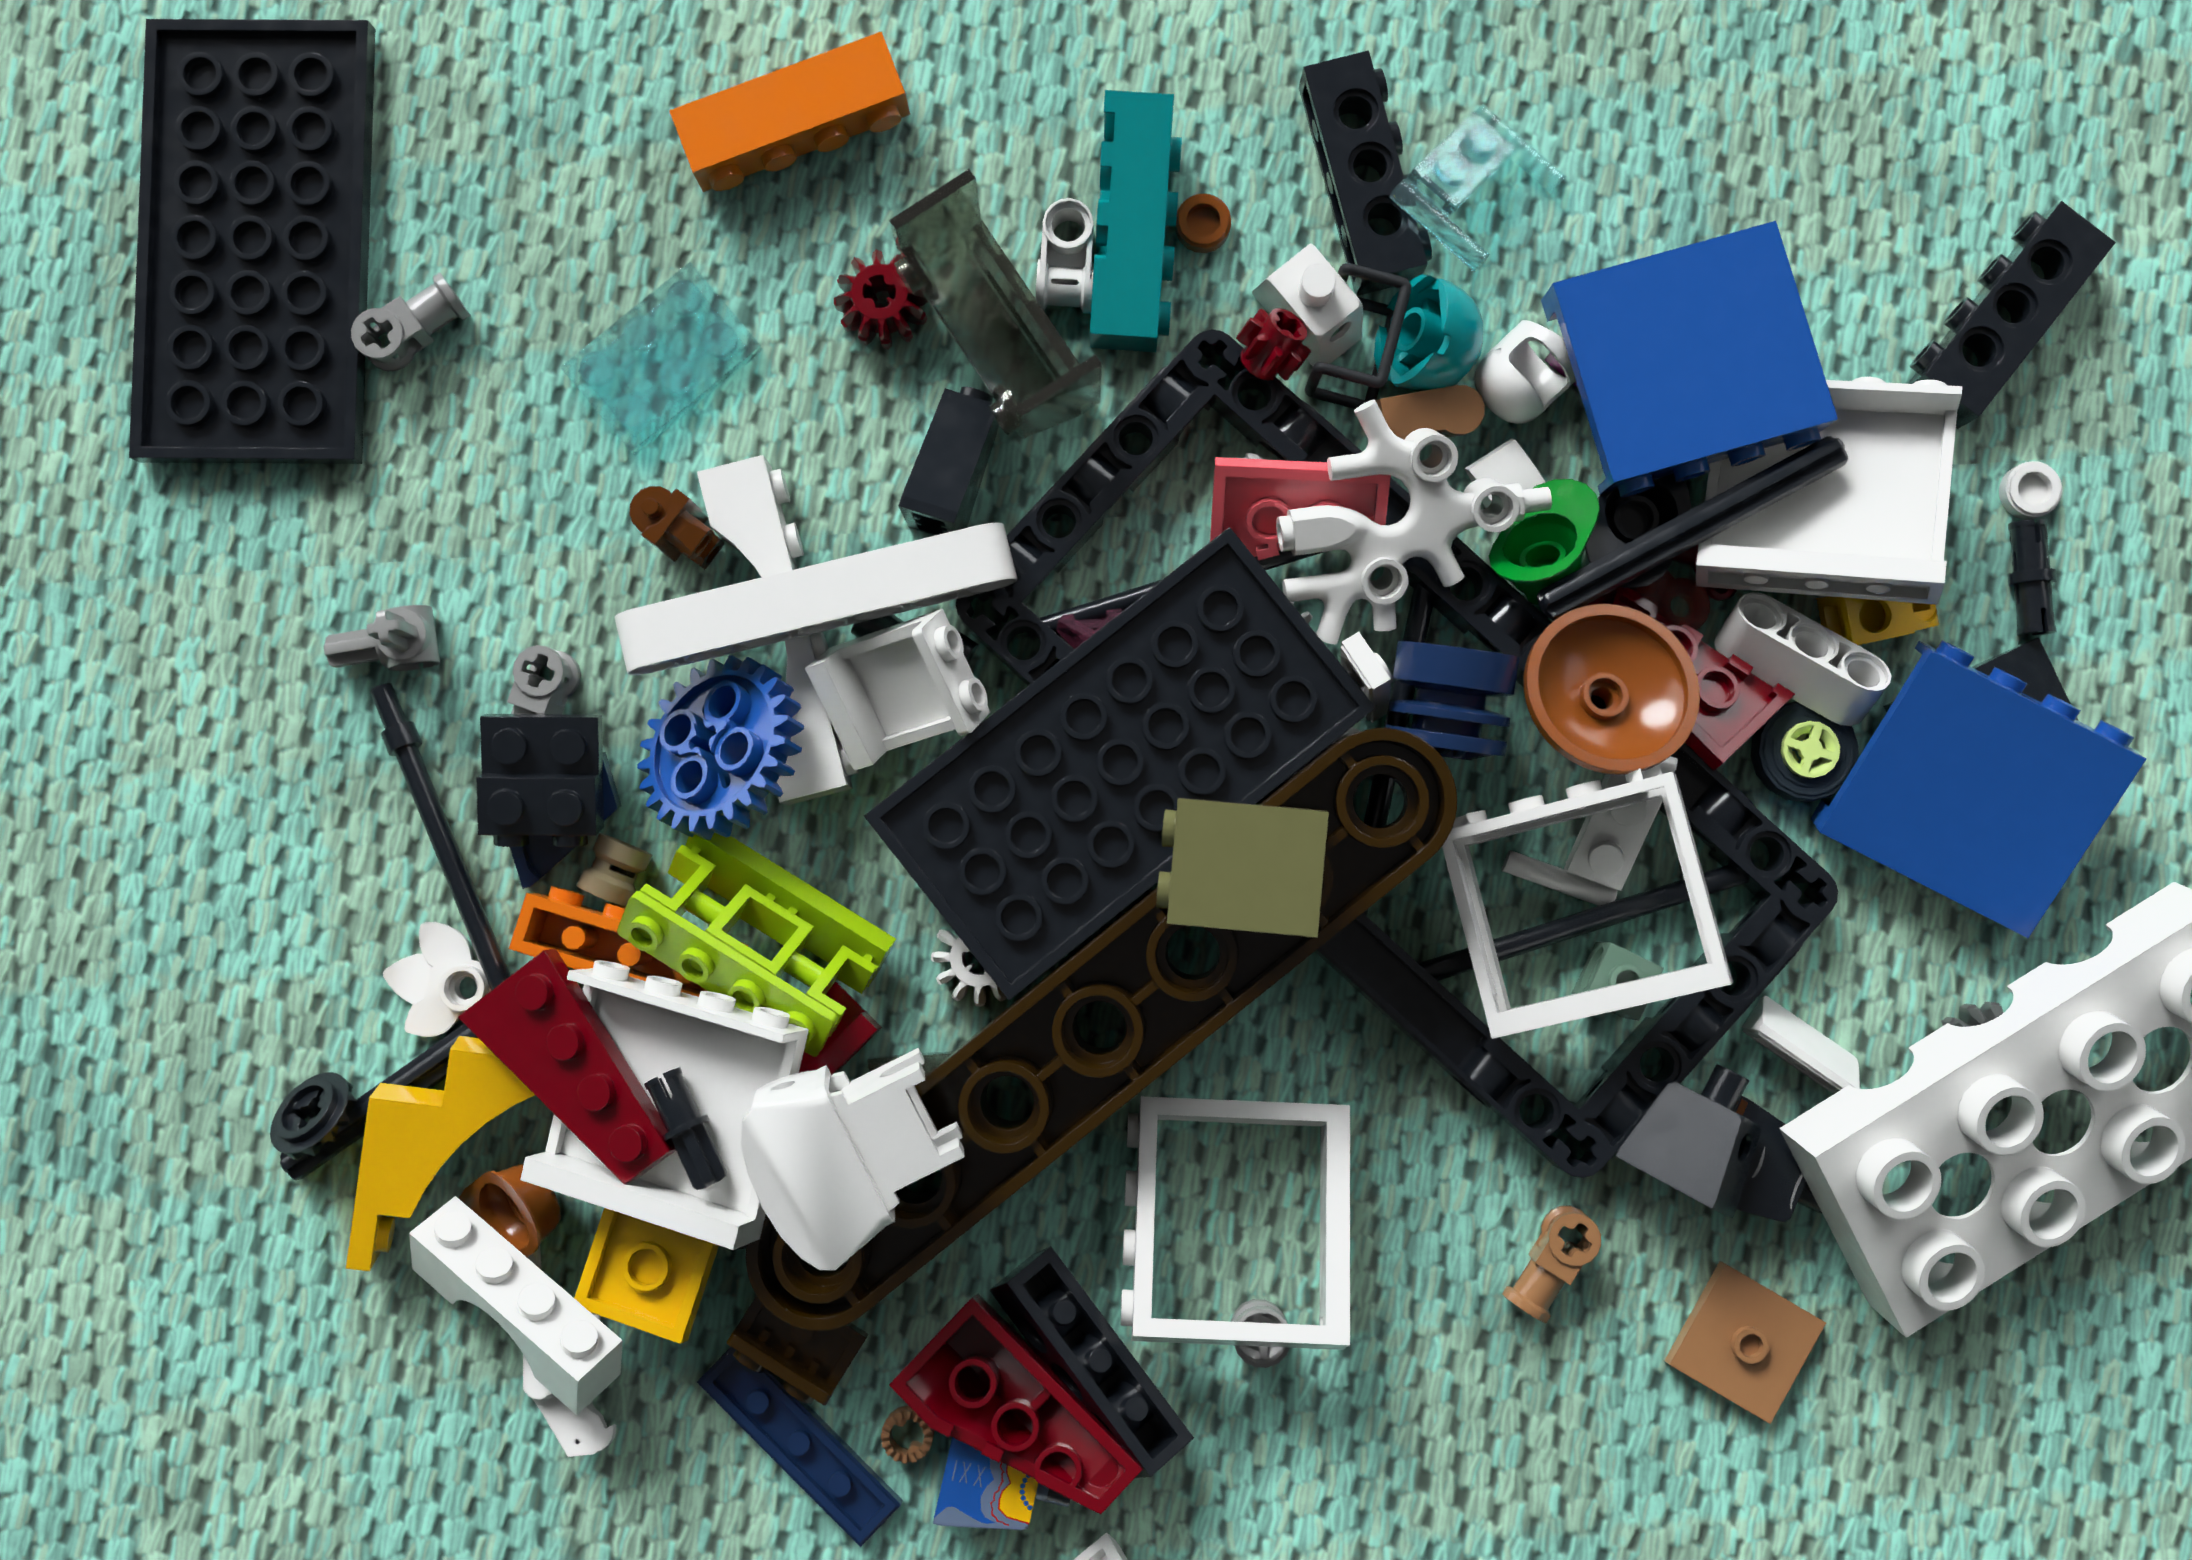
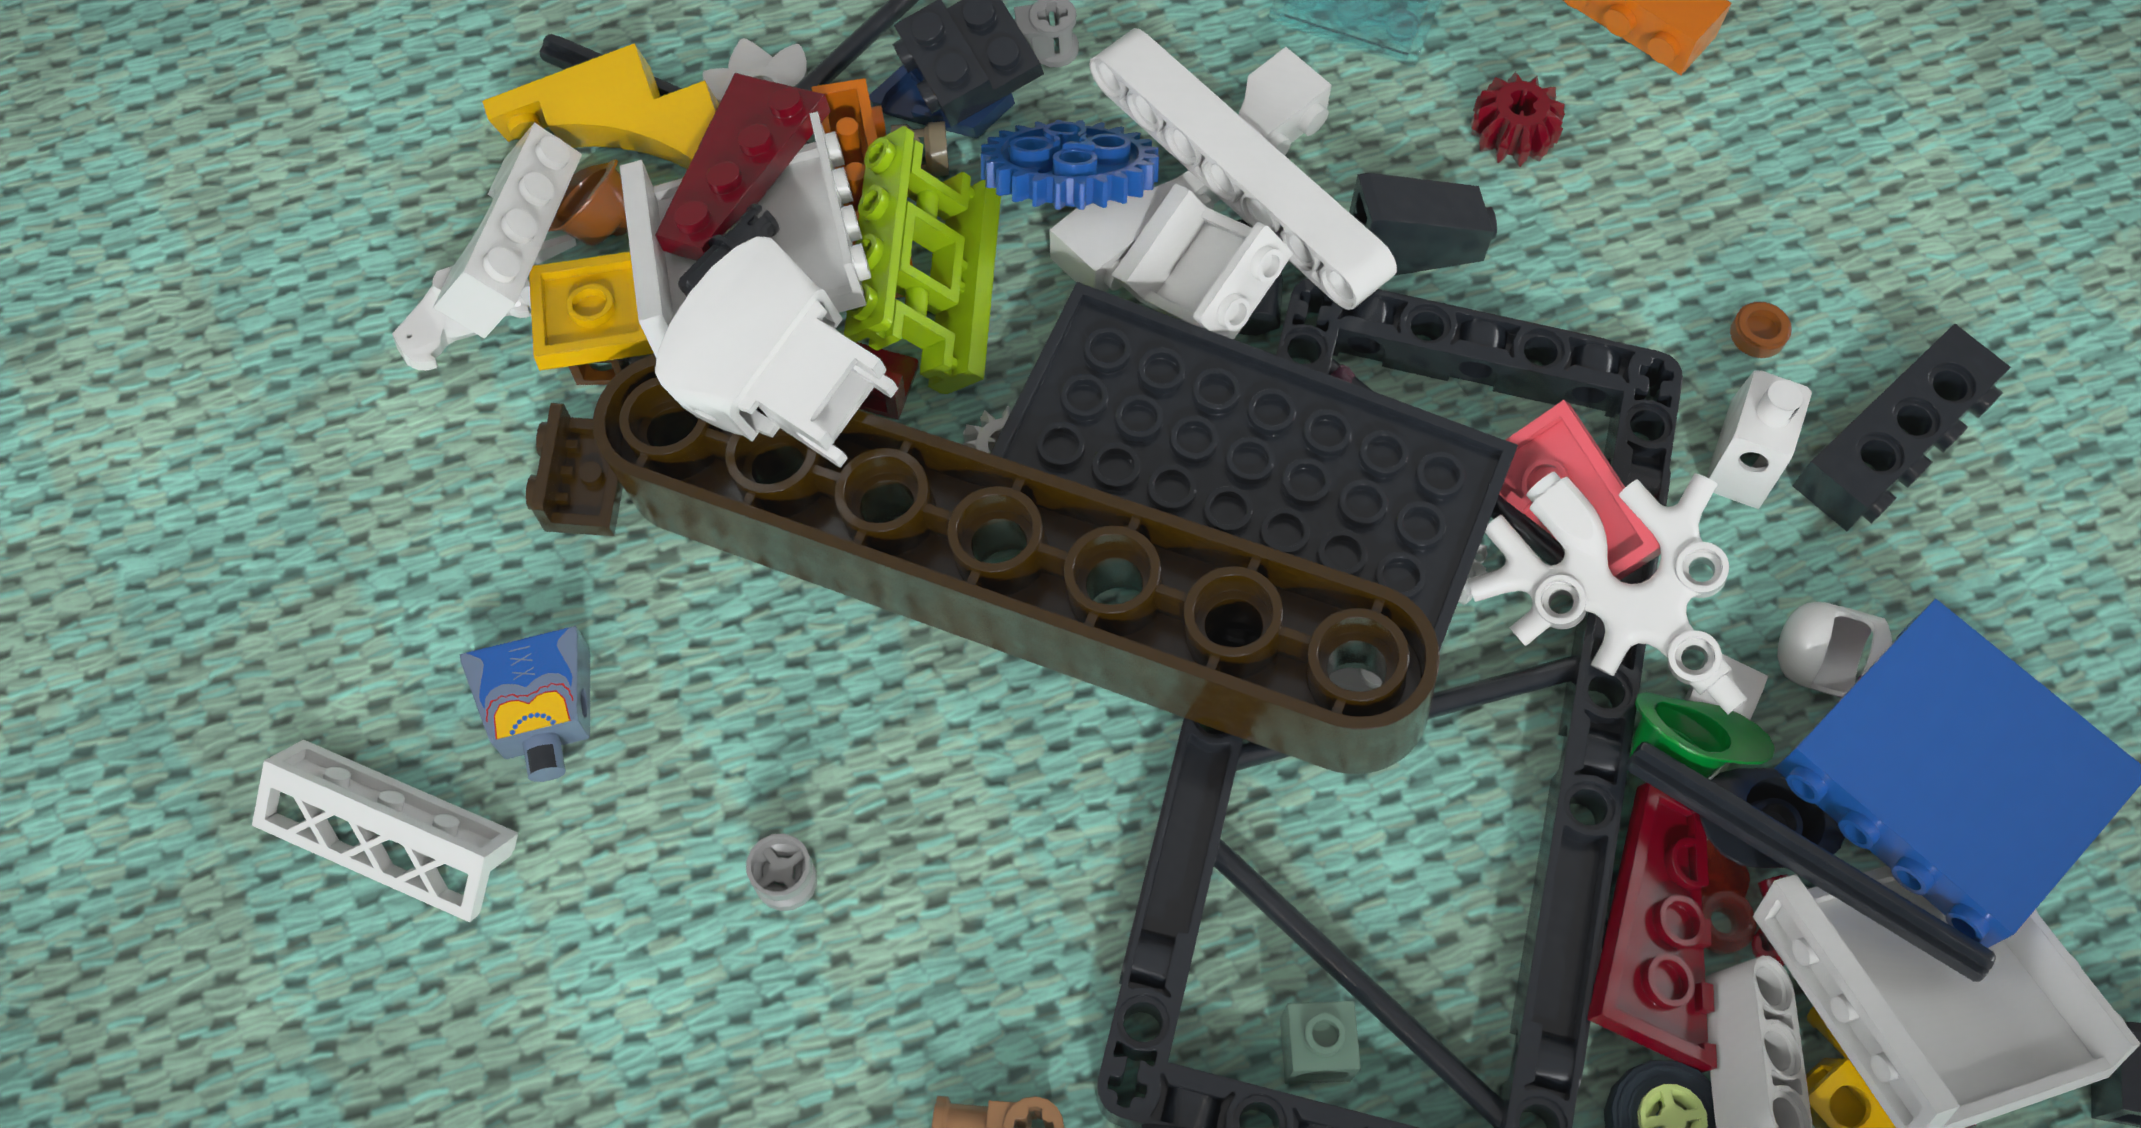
camera: 60 degrees right, 20 degrees down
(322, 1097) = (595, 33): black gear -> none
(674, 525) = (1231, 55): reddish brown hips -> none
(803, 1446) = (481, 536): dark blue tile -> none
(916, 1449) = (528, 594): medium nougat bush -> none
(991, 312) = (1573, 174): clear smoke windscreen -> none
(1005, 1401) = (605, 660): dark red wedge -> none
(1065, 266) = (1646, 237): white piece -> none
(1091, 1358) = (677, 725): black brick -> none
(1133, 221) = (1723, 261): teal wedge -> none
(1138, 1244) = (910, 882): white window -> none
(1244, 867) = (1224, 555): olive brick -> none
(1273, 344) = (1702, 406): dark red gear -> none
(1368, 672) = (1464, 639): white plate -> none
(1393, 329) = (1787, 490): black piece -> none
(1437, 338) = (1807, 552): teal cylinder -> none
(1446, 410) = (1749, 598): medium nougat leg -> none
(1453, 696) = (1505, 709): dark blue wheel -> none
(1458, 169) = (1972, 498): clear light blue plate -> none
(1533, 814) = (1323, 1032): white window -> none
(1601, 851) = (1472, 951): white plate -> none
(1628, 664) = (1624, 832): dark orange dish -> none

